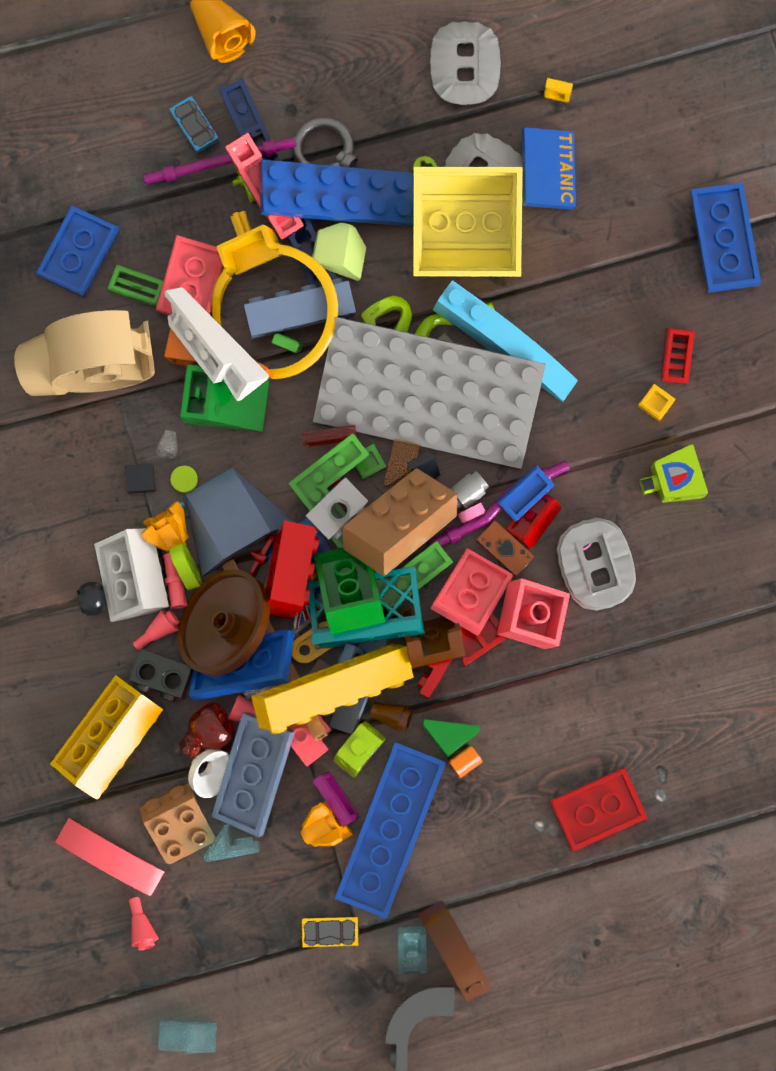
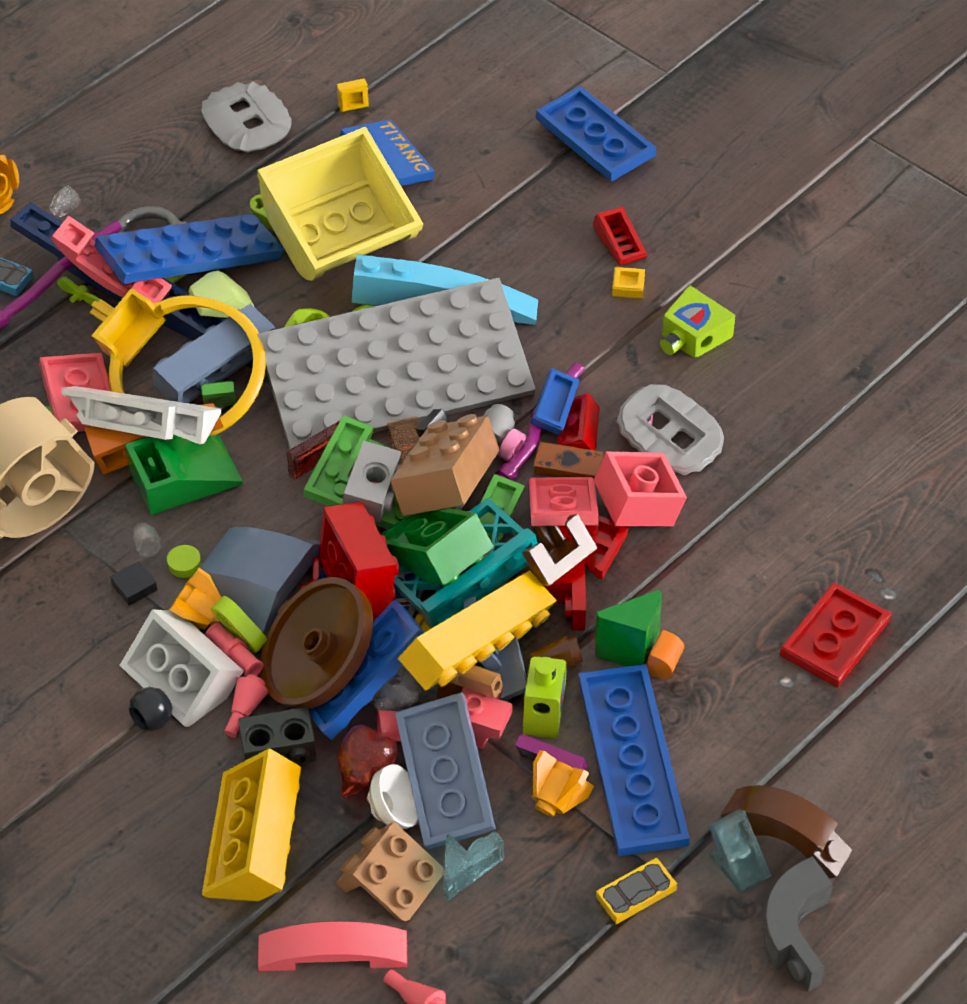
camera: 30 degrees left, 30 degrees down
(278, 79) = (64, 201): none -> clear hose

